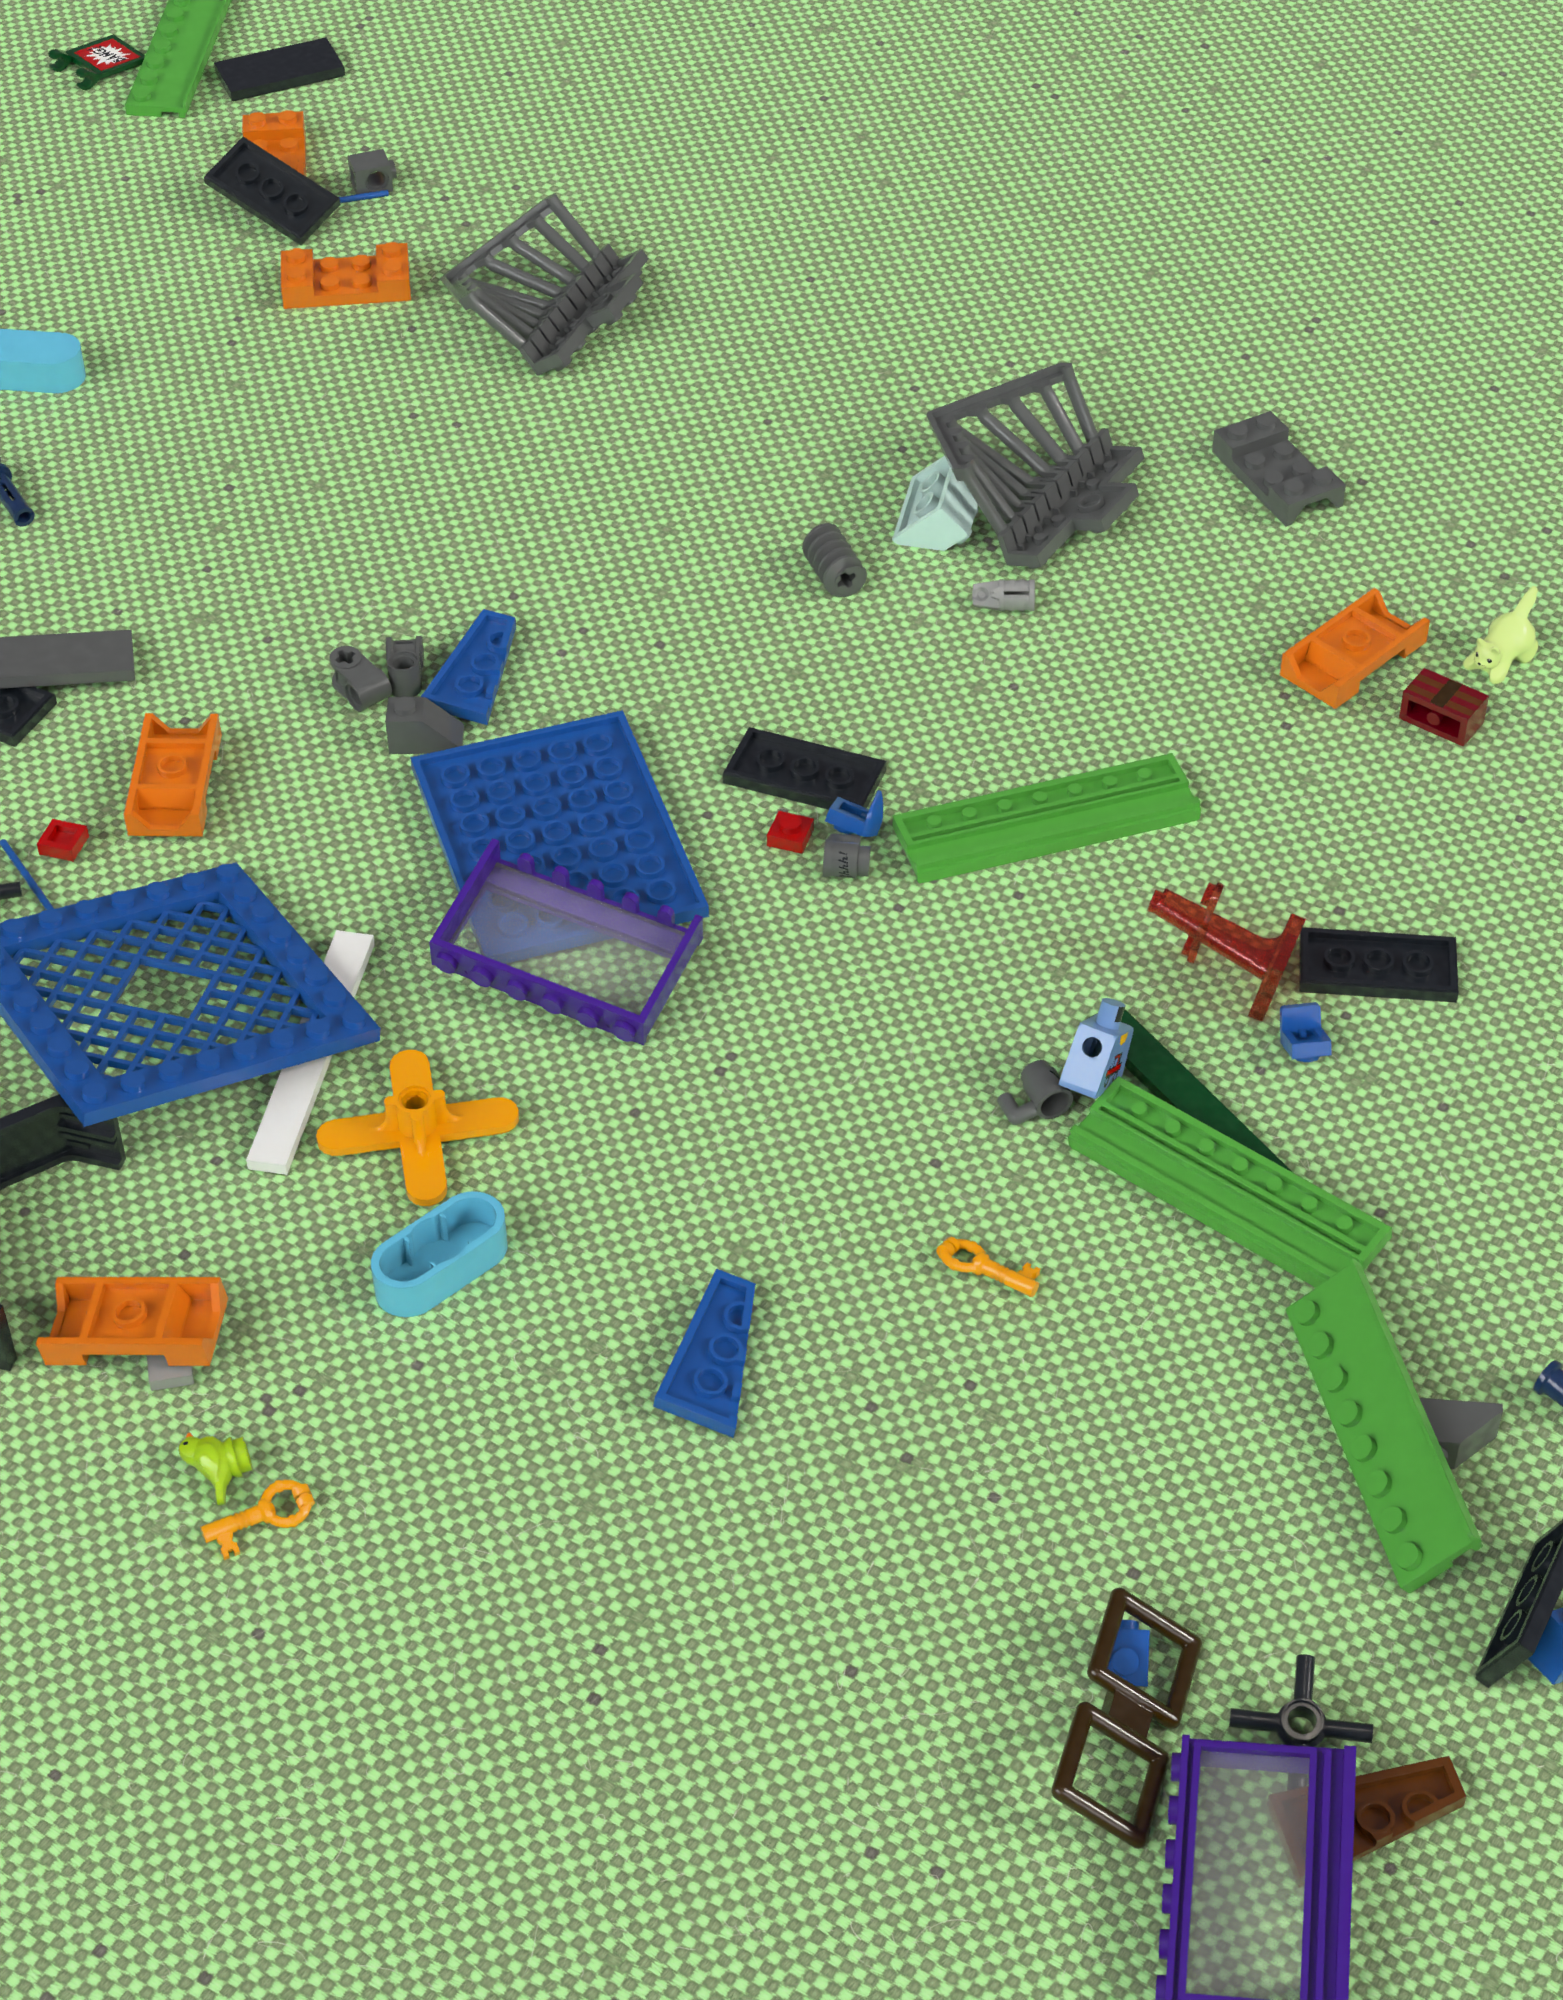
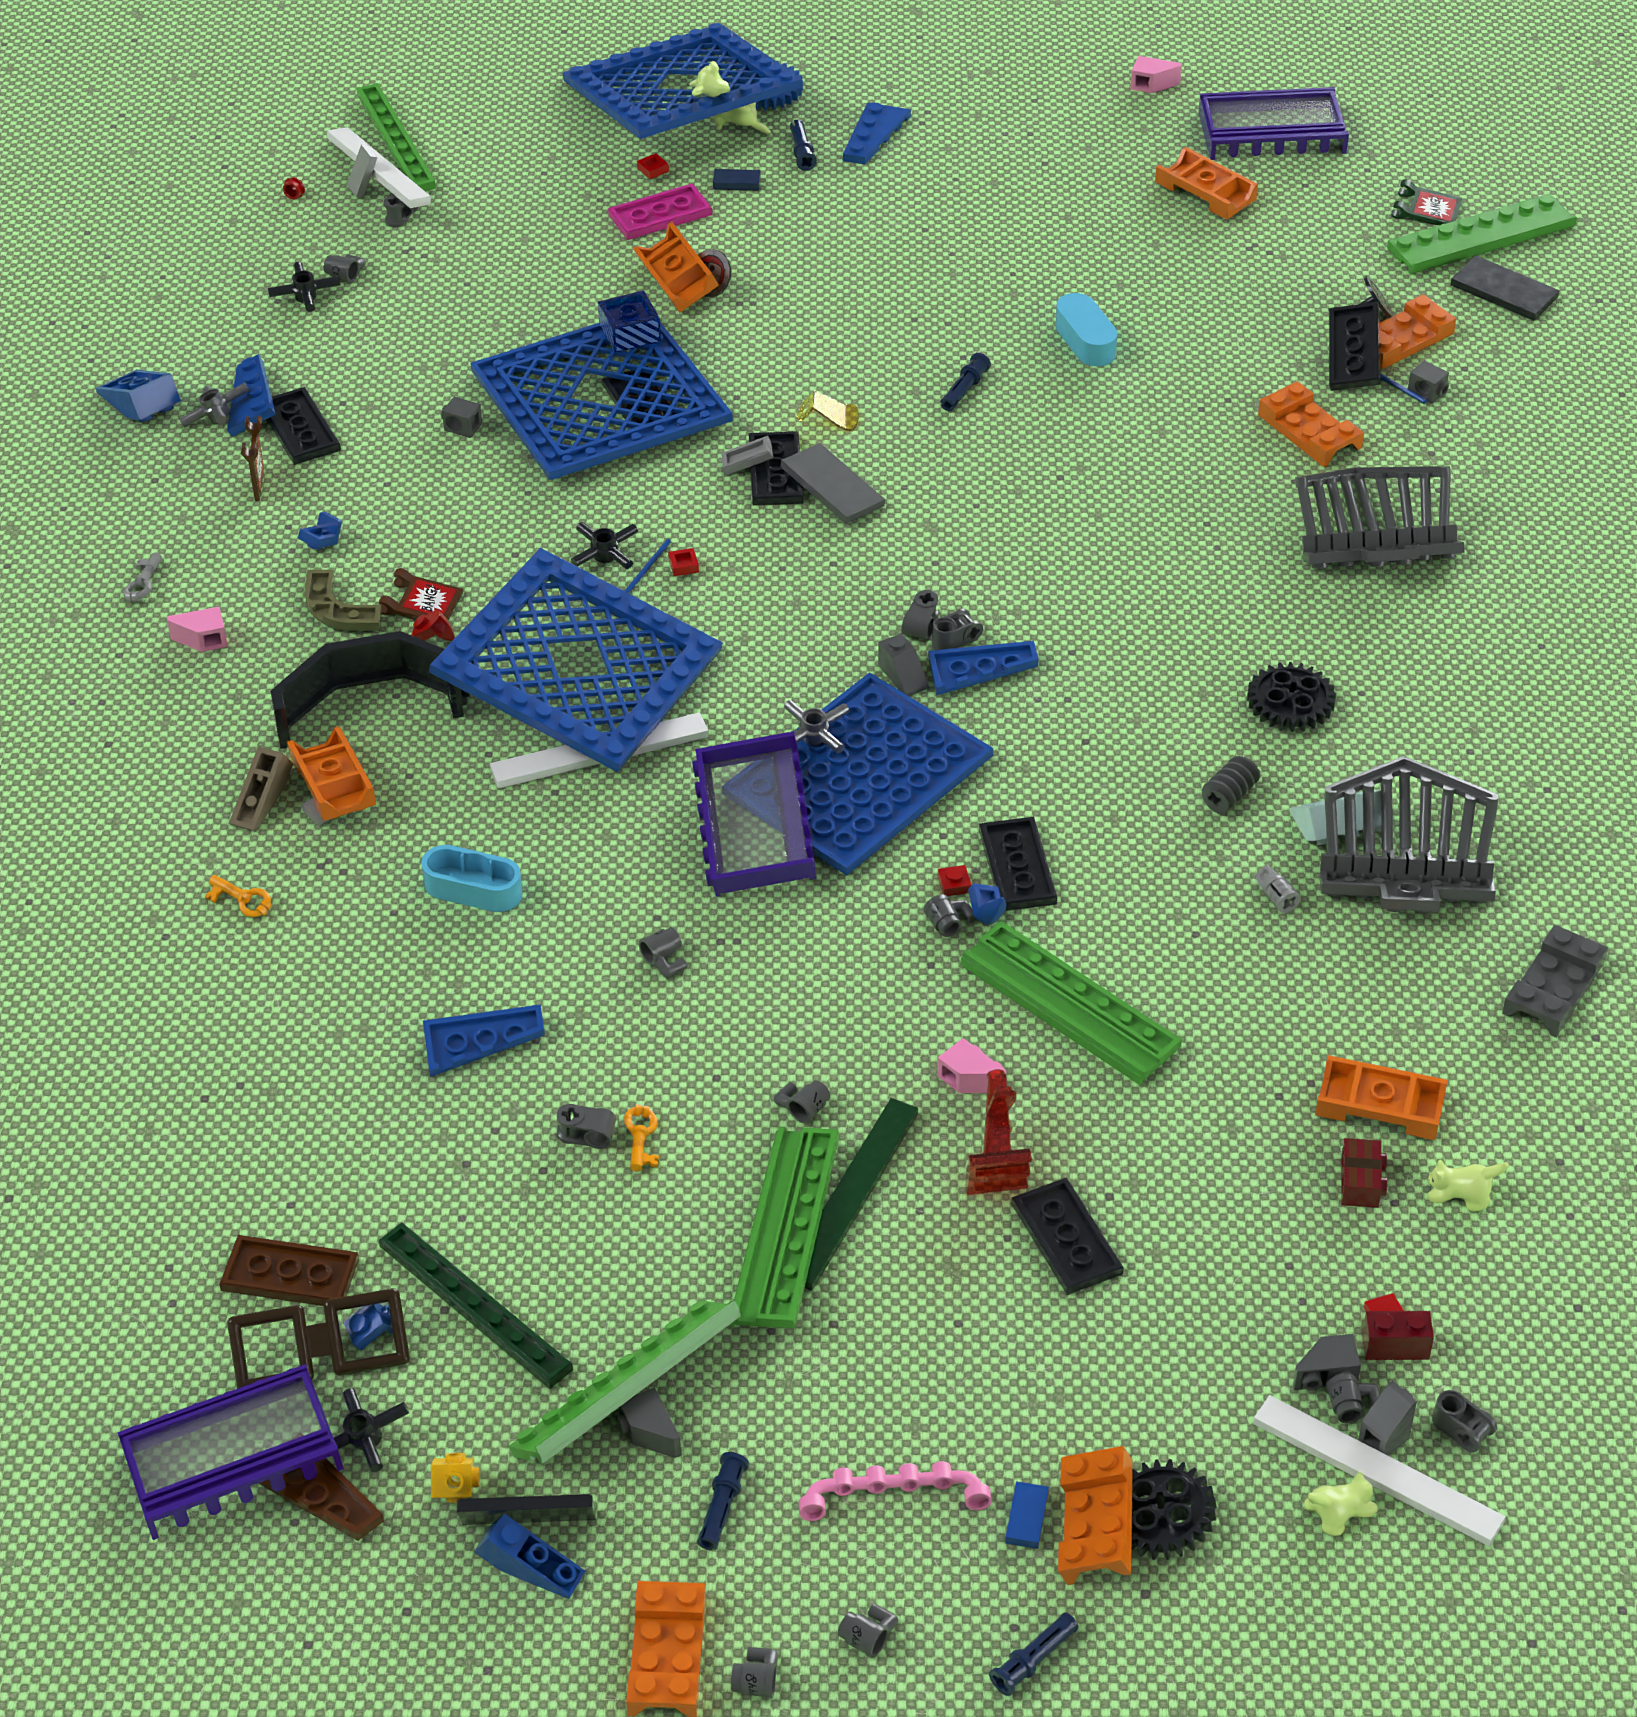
camera: 60 degrees right, 0 degrees up
(87, 1413) = (261, 788): none -> dark tan slope
(171, 778) = (768, 576): orange piece -> none
(212, 143) = (1377, 296): none -> shield
(217, 1460) = (262, 860): lime animal -> none
(417, 1123) = (570, 820): light orange piece -> none
(471, 830) = (815, 725): none -> flat silver bar
(699, 1123) = (660, 946): none -> dark grey piece
(740, 464) = (1291, 696): none -> black gear
(942, 1309) = (587, 1128): none -> dark grey piece
(971, 1714) = (288, 1270): none -> reddish brown tile
(1094, 934) = (966, 1068): none -> bright pink slope
(1098, 1051) = (840, 1106): medium blue torso -> none
(1147, 1536) = (476, 1305): none -> dark green tile
(1302, 1032) = (958, 1217): blue bracket -> none
(1433, 1657) = (445, 1485): none -> yellow brick

